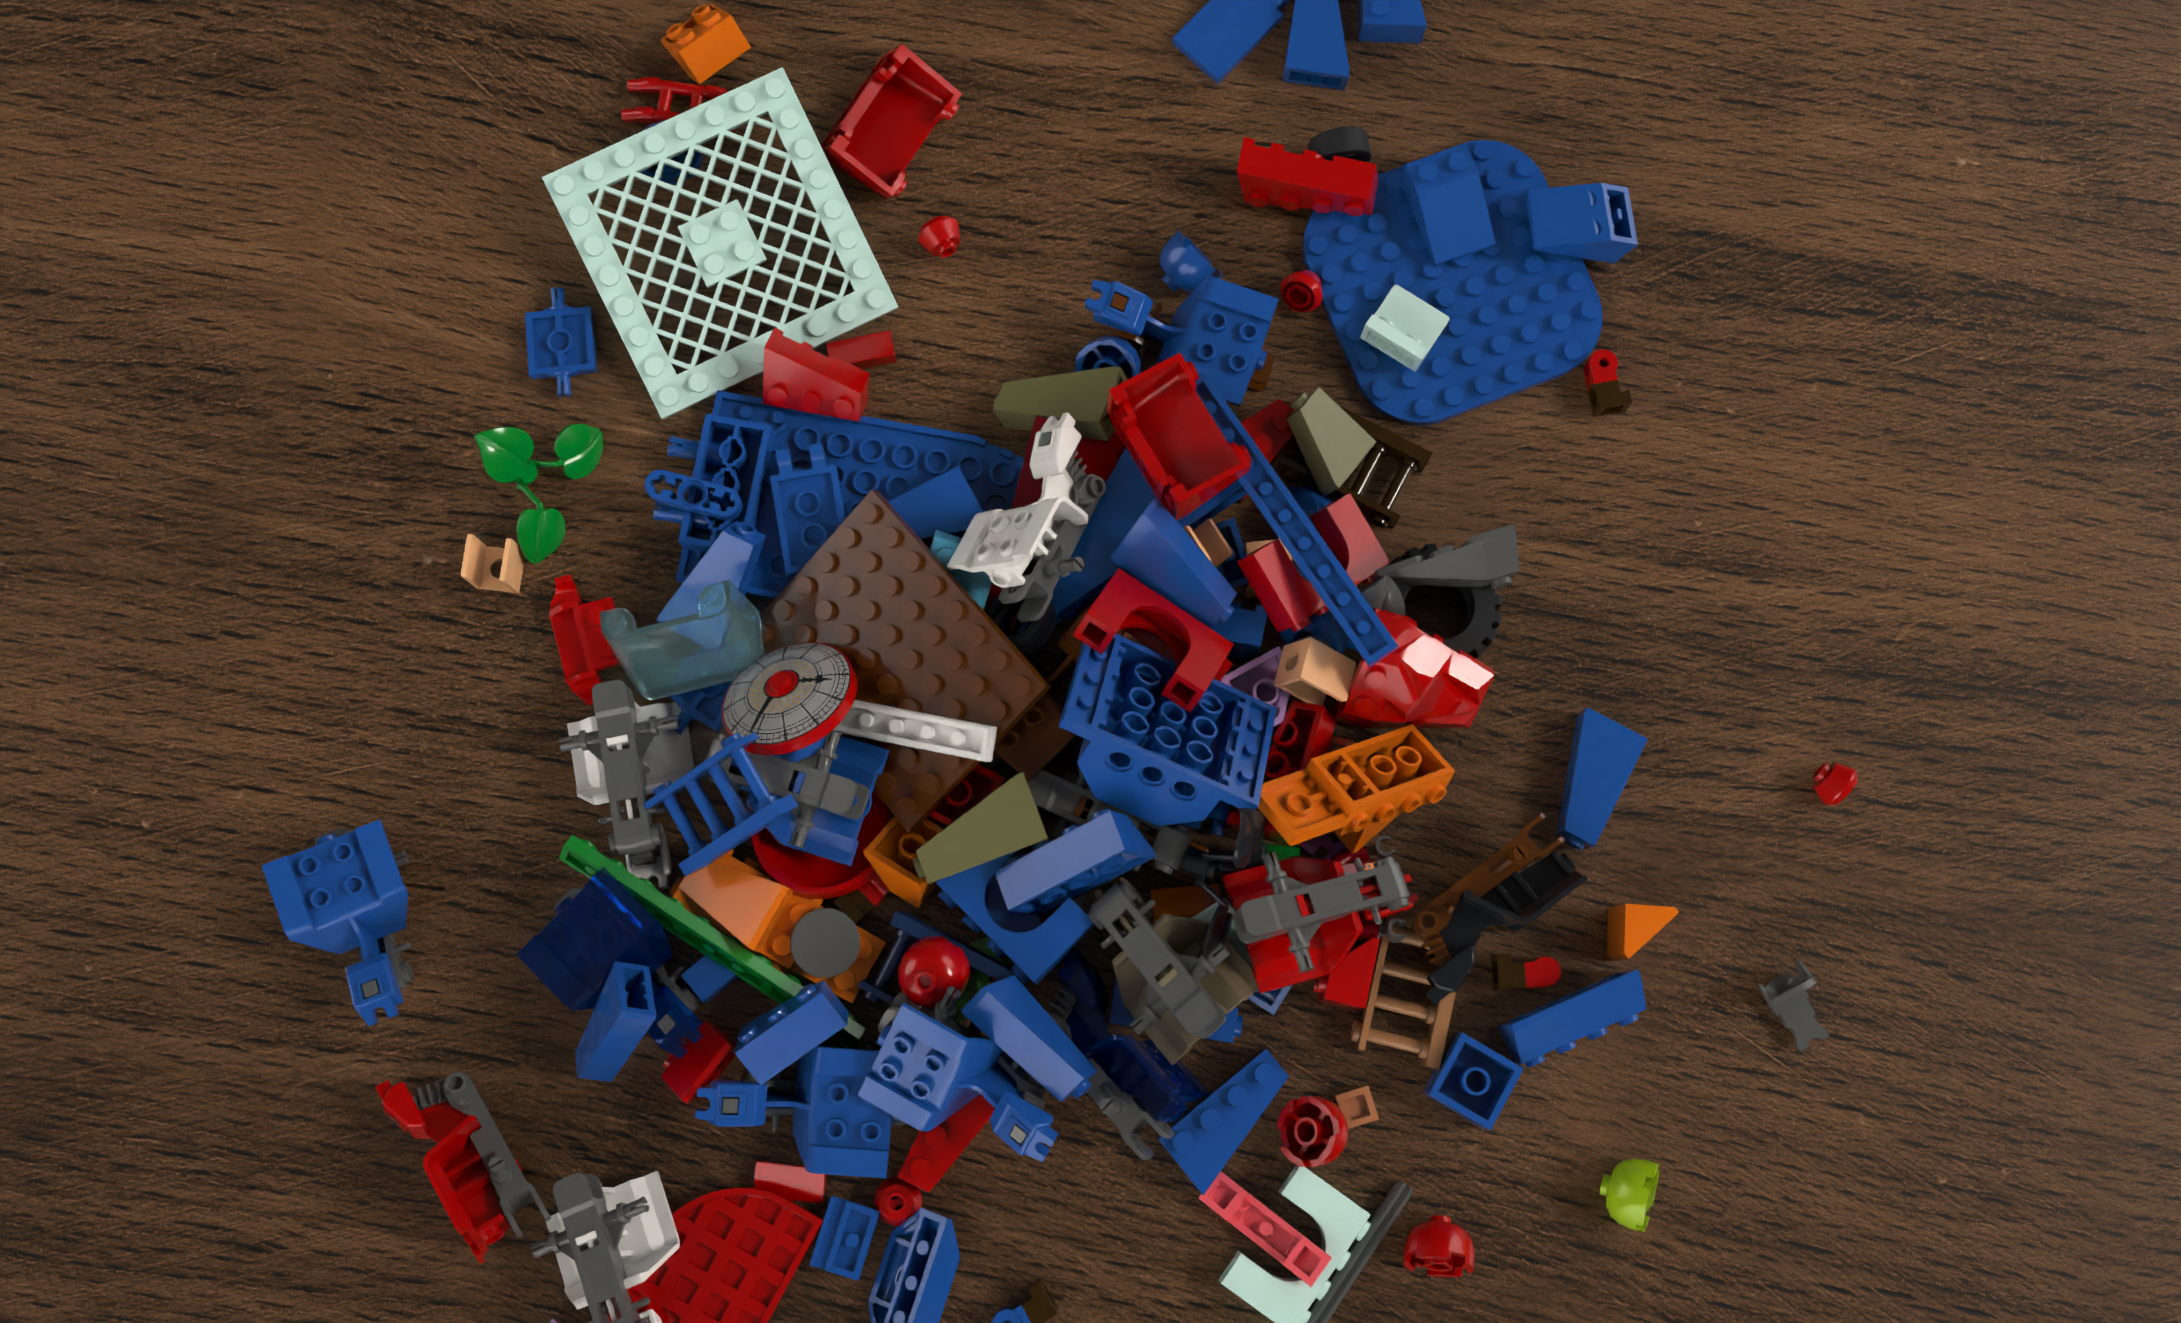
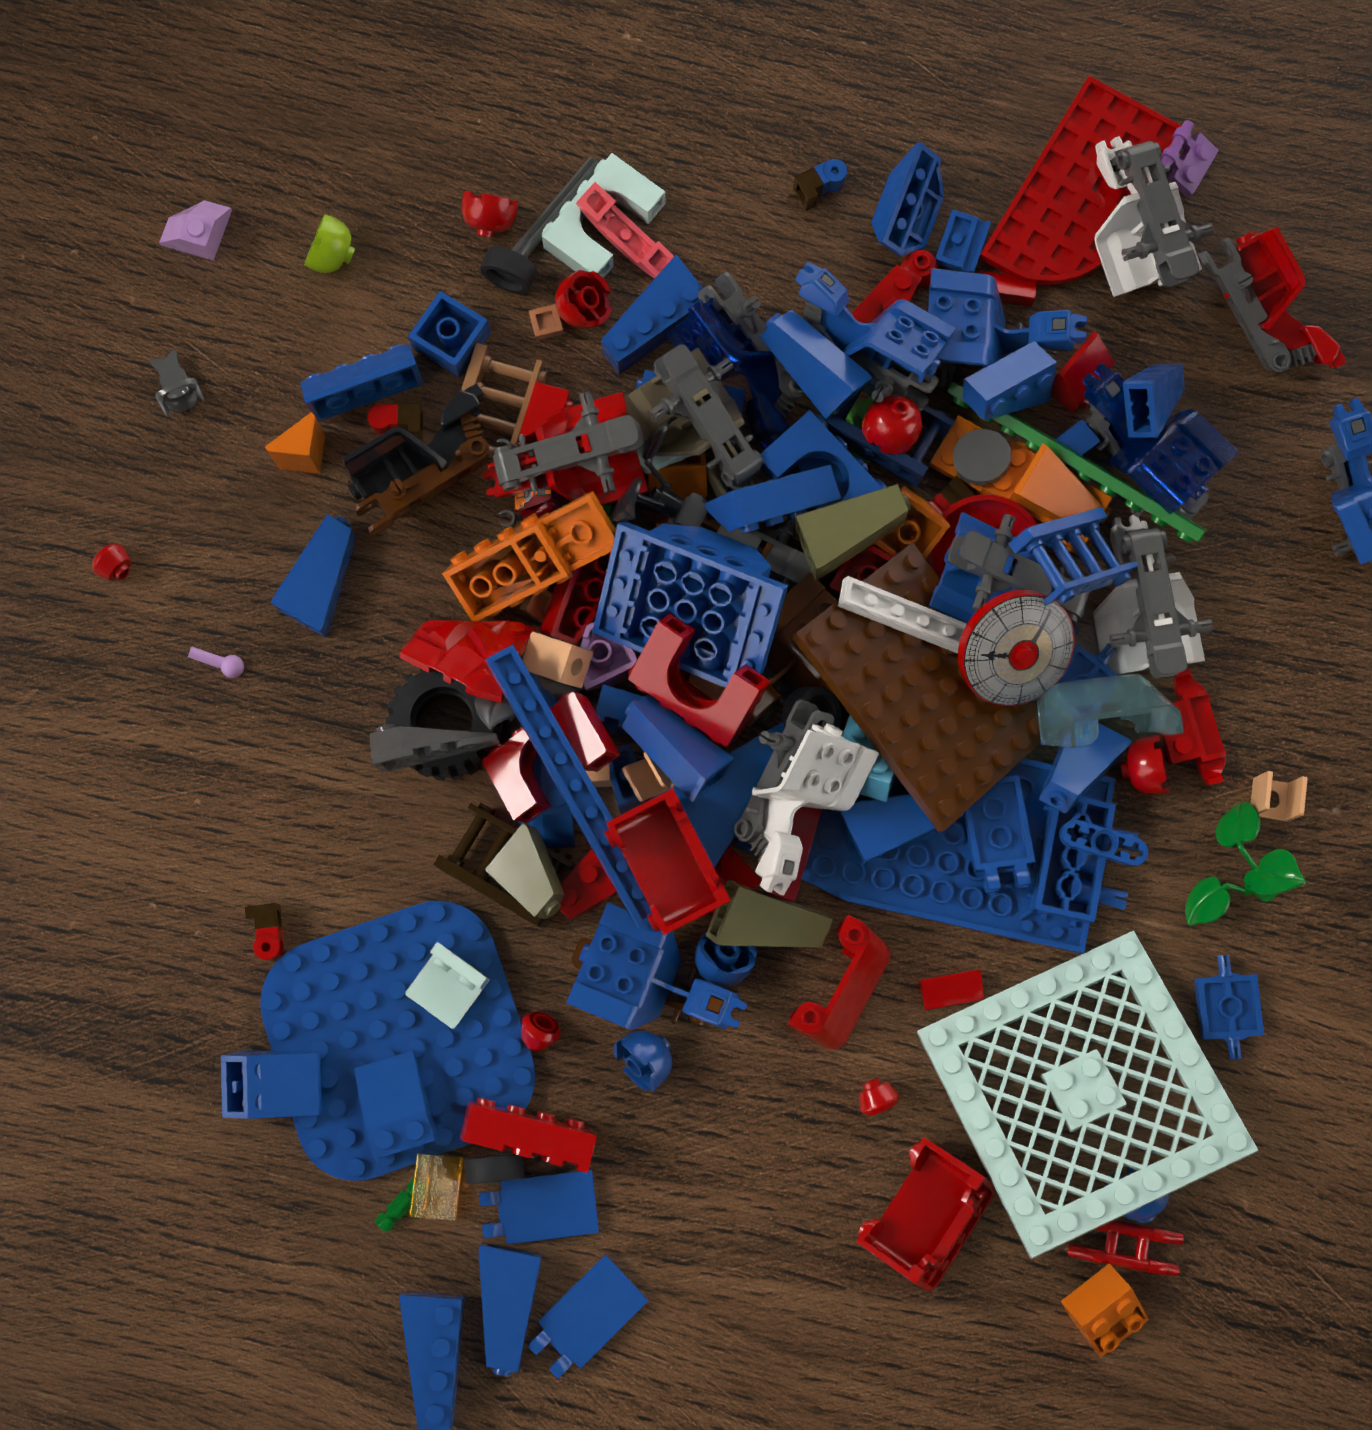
camera: 175 degrees left, 0 degrees up
(641, 590) = (1146, 766): none -> red cylinder
(812, 382) = (998, 952): red wedge -> none
(957, 375) = (833, 1024): none -> red windscreen
(1285, 117) = (543, 1207): none -> blue tile
(1397, 134) = (436, 1187): none -> clear yellow plate
(1408, 1167) = (508, 270): none -> black tyre
(1432, 120) = (396, 1208): none -> green axle
(1681, 674) = (231, 665): none -> lavender bar
(1796, 1216) = (197, 229): none -> lavender slope

